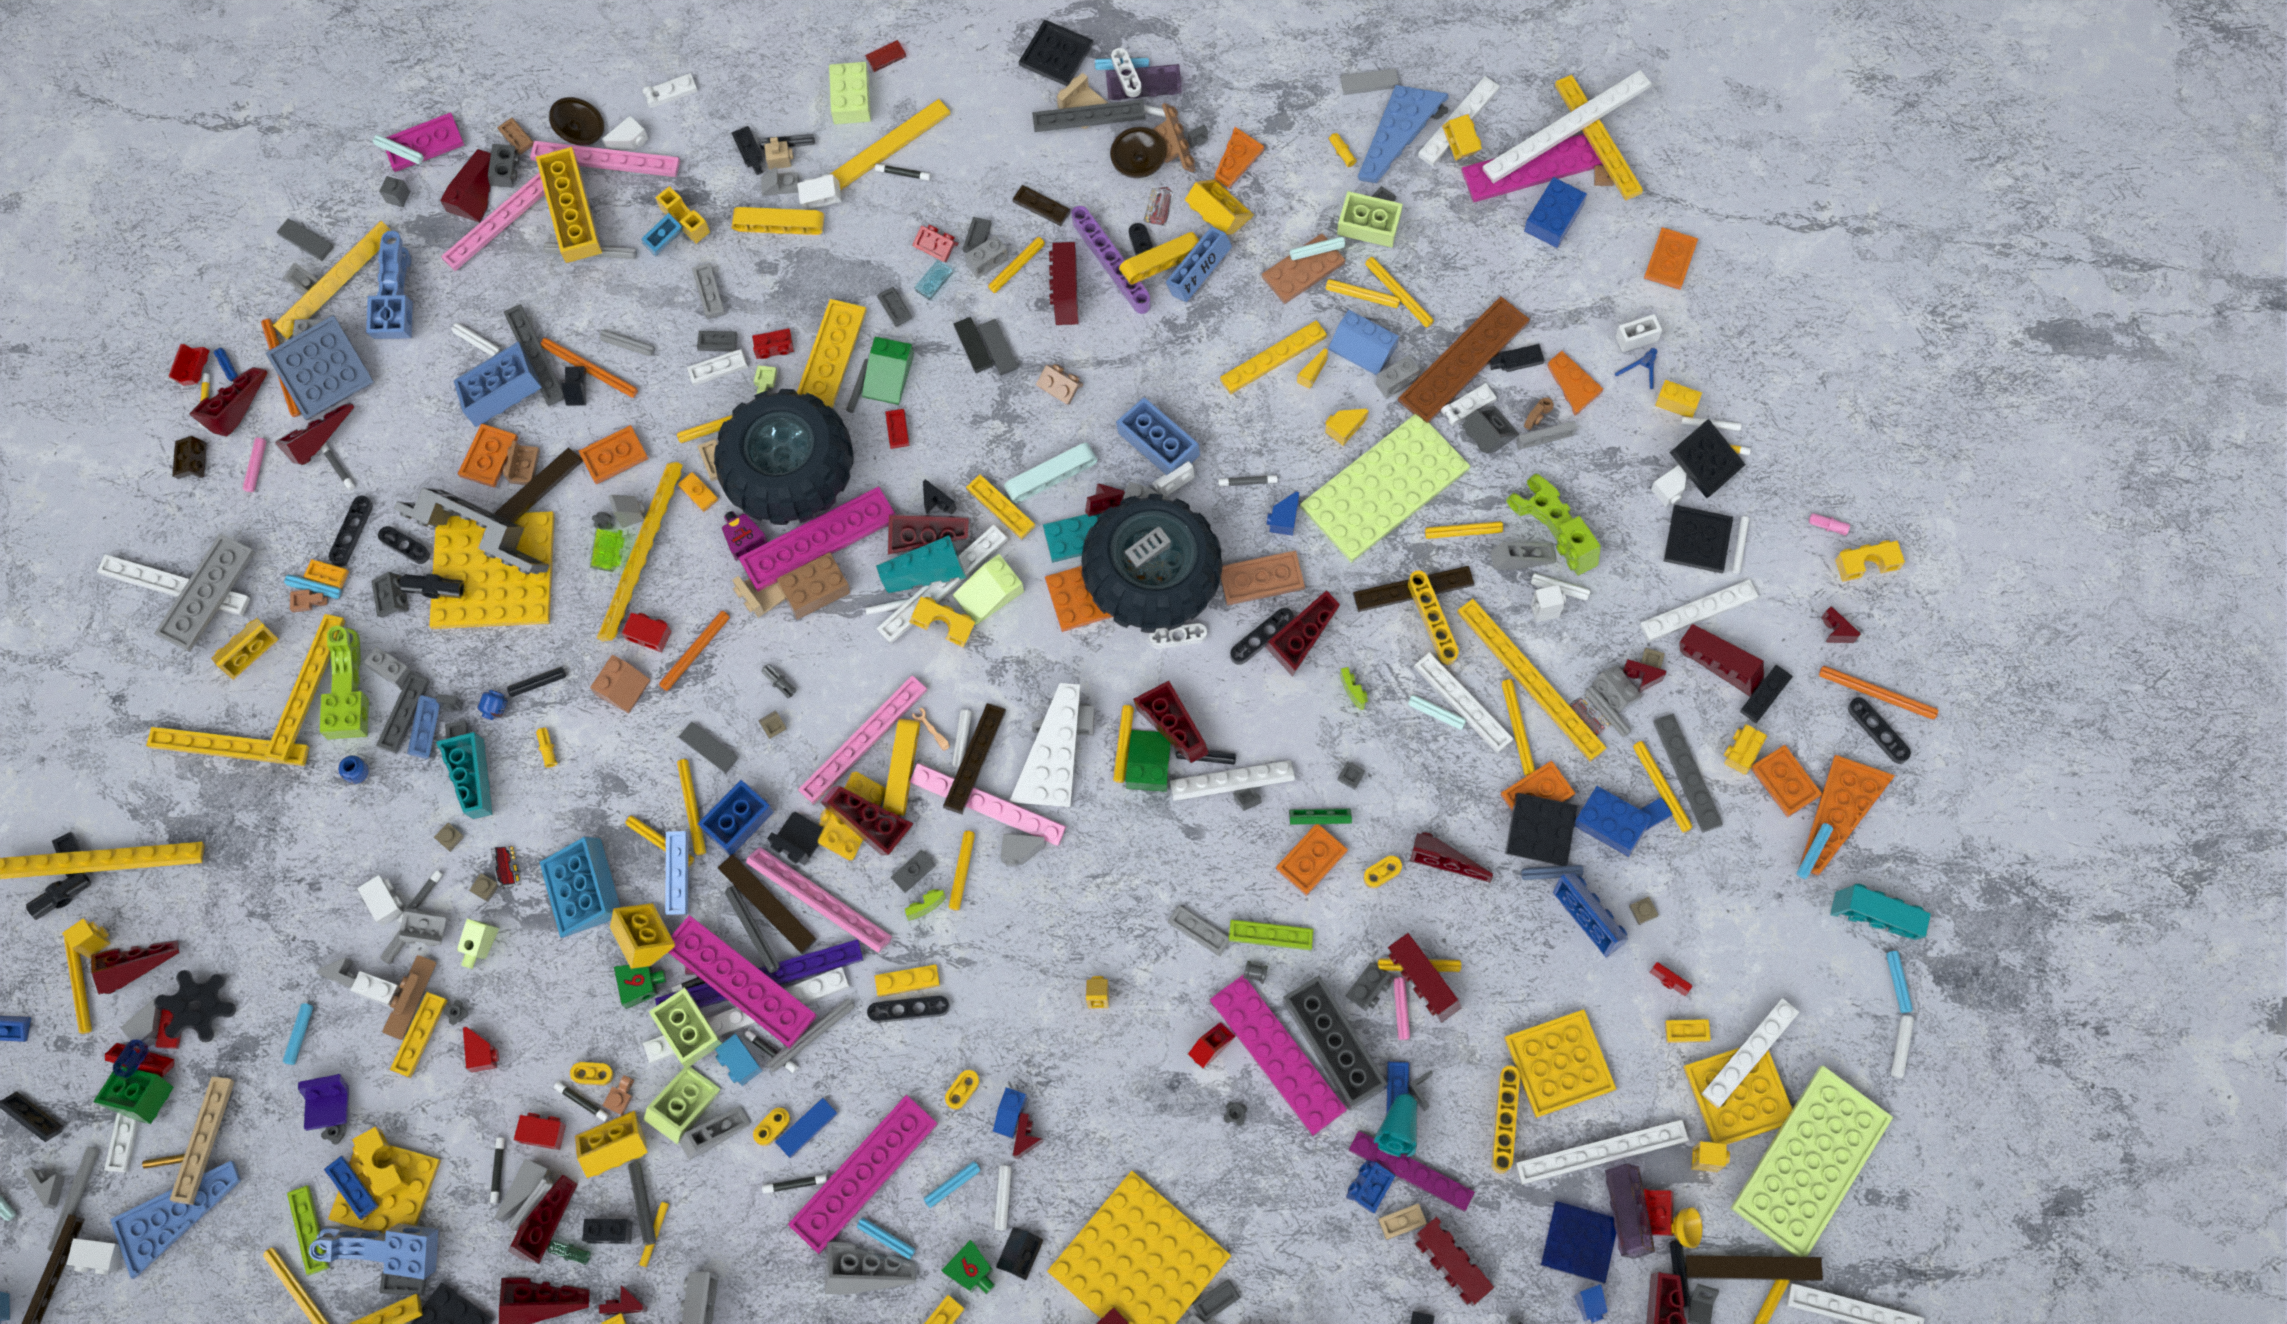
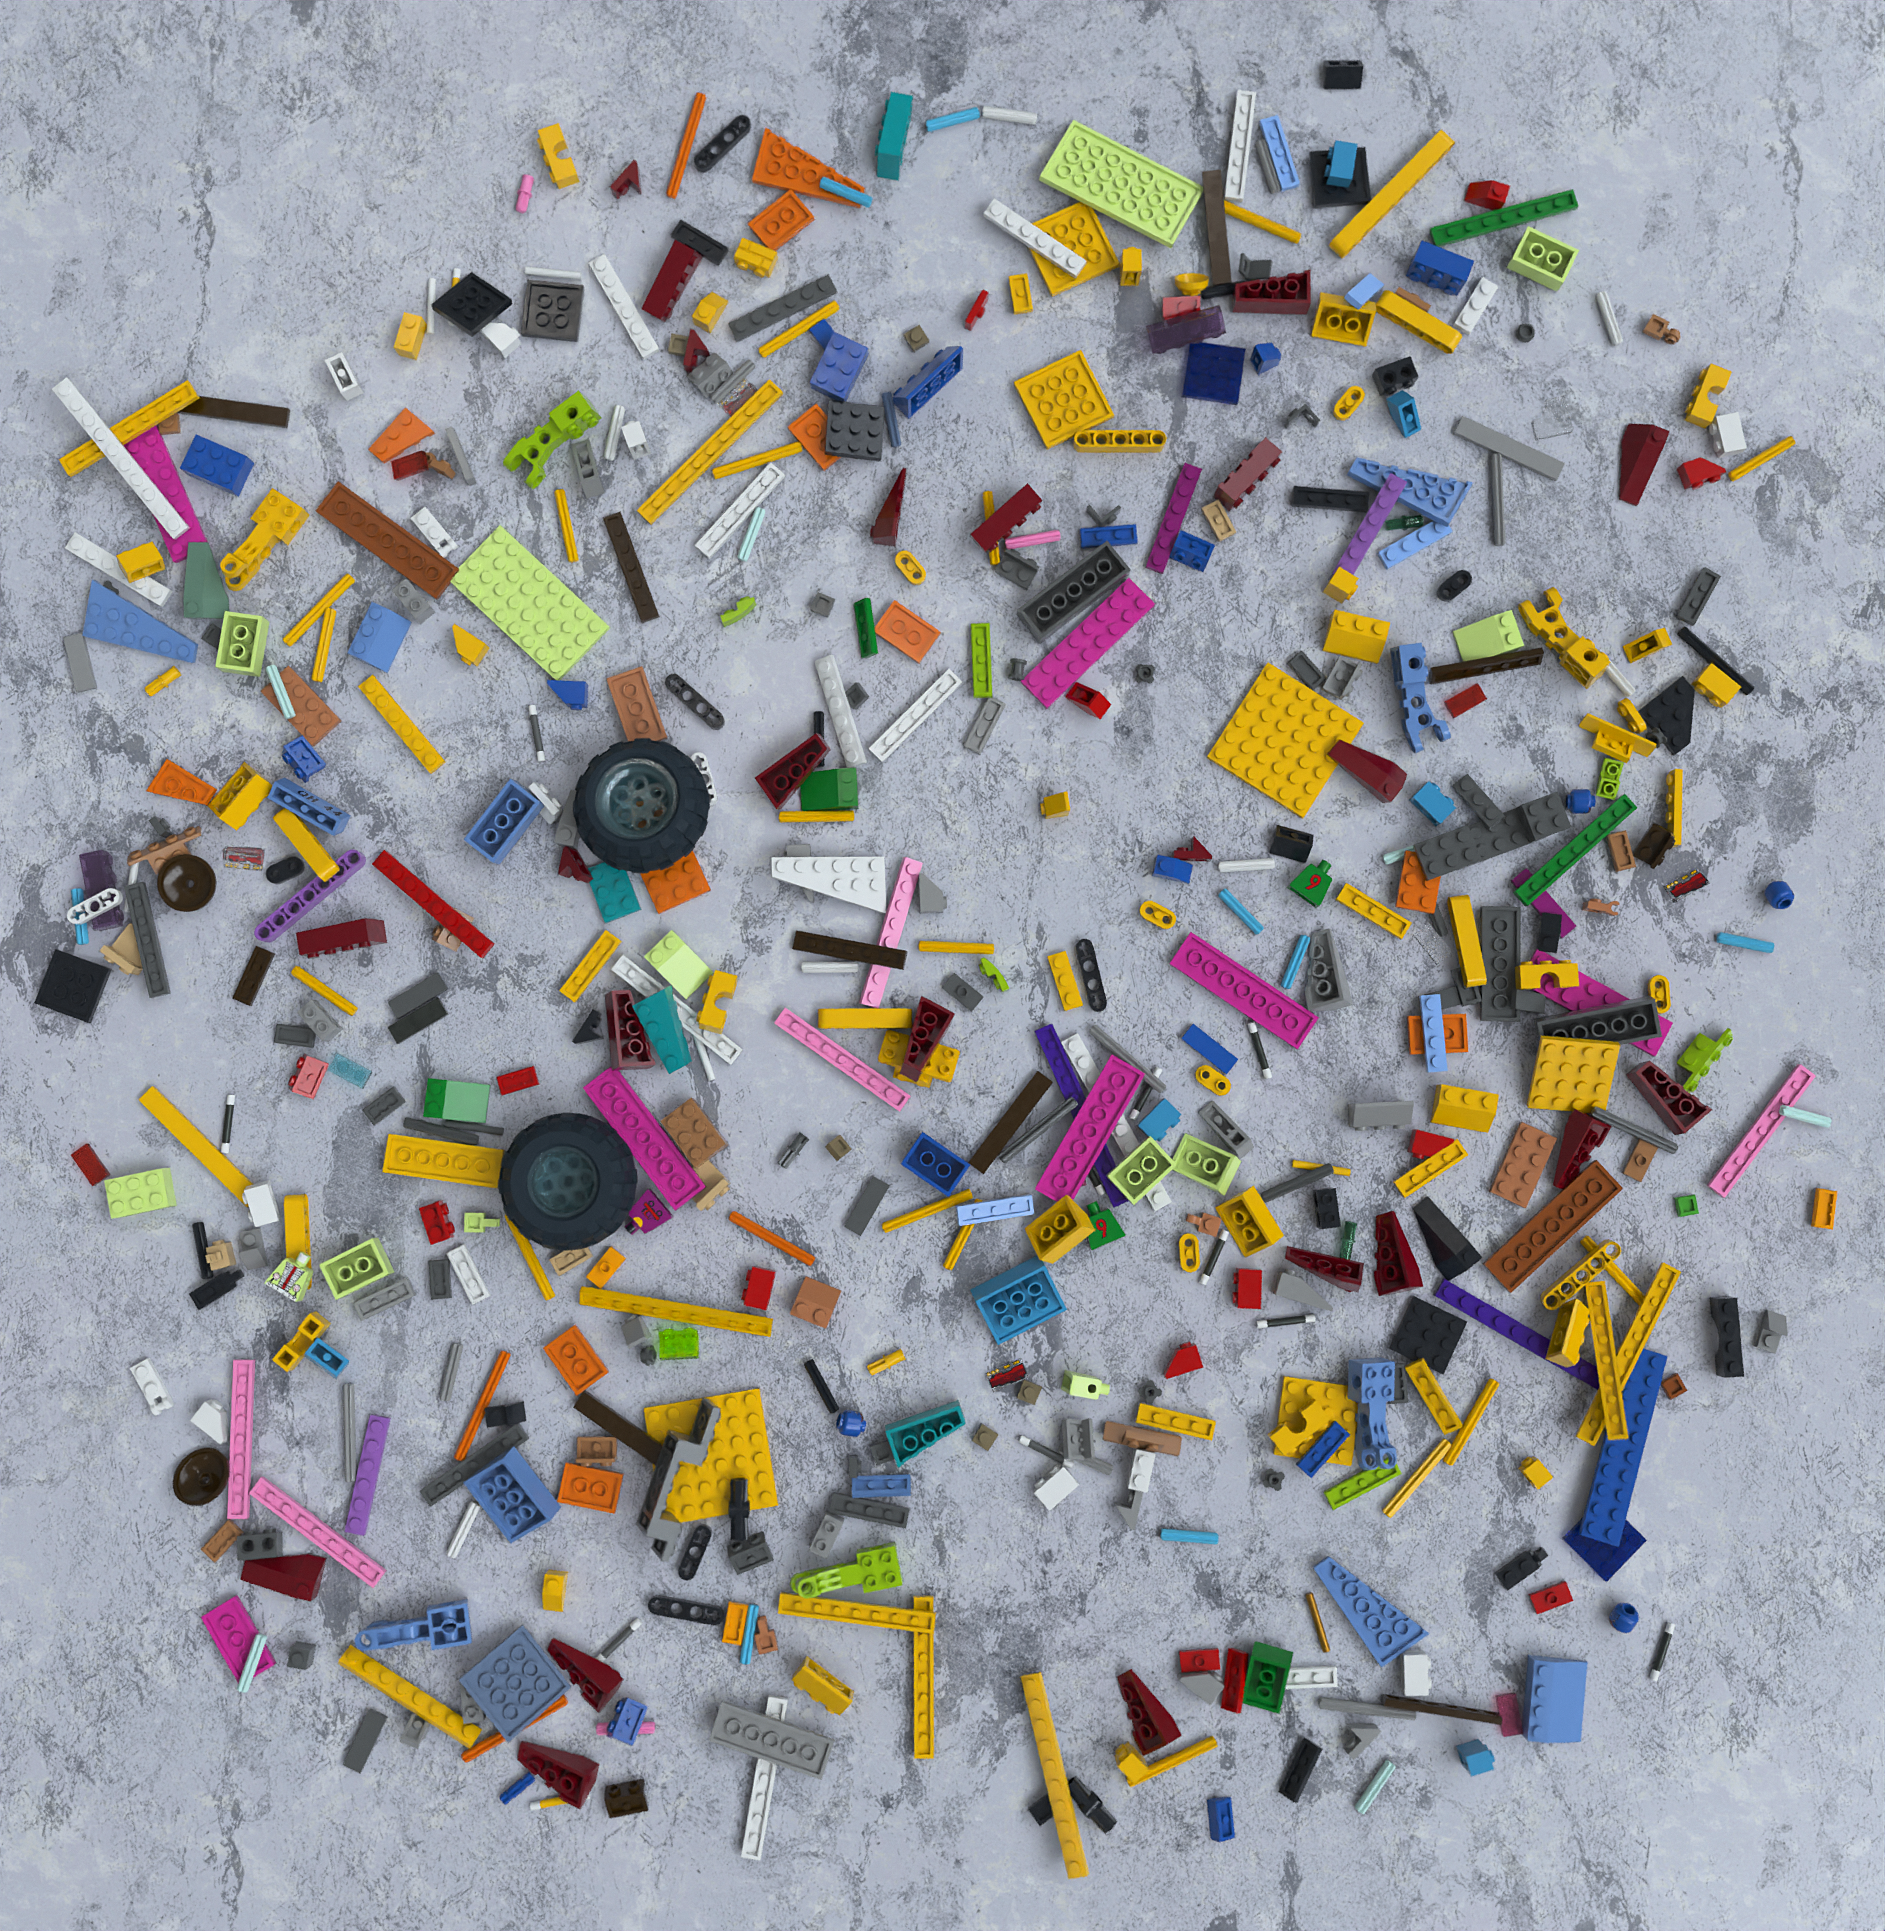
camera: 105 degrees left, 15 degrees up
(130, 1058) = (1236, 1690): clear blue beam -> none
(188, 365) = (523, 1826): red bracket -> none
(200, 1019) = (1168, 1650): black plate -> none
(202, 1140) = (1300, 1599): tan plate -> none
(258, 463) = (626, 1721): none -> bracket
(324, 1101) = (1251, 1492): dark purple bracket -> none
(353, 769) = (930, 1538): blue head -> none
(400, 413) = (554, 1590): none -> yellow slope
(530, 1203) = (1314, 1281): light grey axle -> none
(547, 263) = (367, 1474): none -> medium lavender plate
(568, 205) = (303, 1462): yellow brick -> none
(628, 1304) = (1386, 1176): dark red slope -> none
(741, 267) = (356, 1268): none -> yellowish green brick
(742, 208) = (292, 1277): none -> torso
(796, 838) = (946, 1103): black bracket -> none
(819, 899) = (1001, 1074): bright pink plate -> none
(860, 355) = (441, 1131): none -> dark grey axle
(941, 740) = (833, 987): light nougat piece -> none
(1050, 473) = (549, 922): light aqua beam -> none
(1084, 366) = (433, 904): none -> red plate
(1151, 537) = (625, 789): light grey slope -> none
(1218, 858) = (915, 715): none -> white plate
(1249, 265) = (302, 758): none -> blue bracket
(1299, 636) = (696, 666): dark red wedge -> none
(1310, 372) = (418, 685): yellow slope -> none
(1399, 1128) = (1141, 527): teal cone -> none
(1428, 190) = (203, 586): none -> sand green wedge
(1433, 626) = (655, 551): yellow beam -> none
(1489, 429) = (460, 509): dark grey slope -> none
(1492, 260) = (276, 521): none -> yellow brick
(1518, 358) = (380, 489): black hinge -> none
(1540, 386) = (409, 465): none -> clear red tile
(1601, 1152) = (1136, 359): white plate -> none
(1611, 238) = (238, 411): none -> dark brown tile
(1646, 361) = (371, 369): blue plant -> none
(1671, 258) = (257, 352): orange plate -> none
(1688, 695) = (709, 311): none -> yellow slope

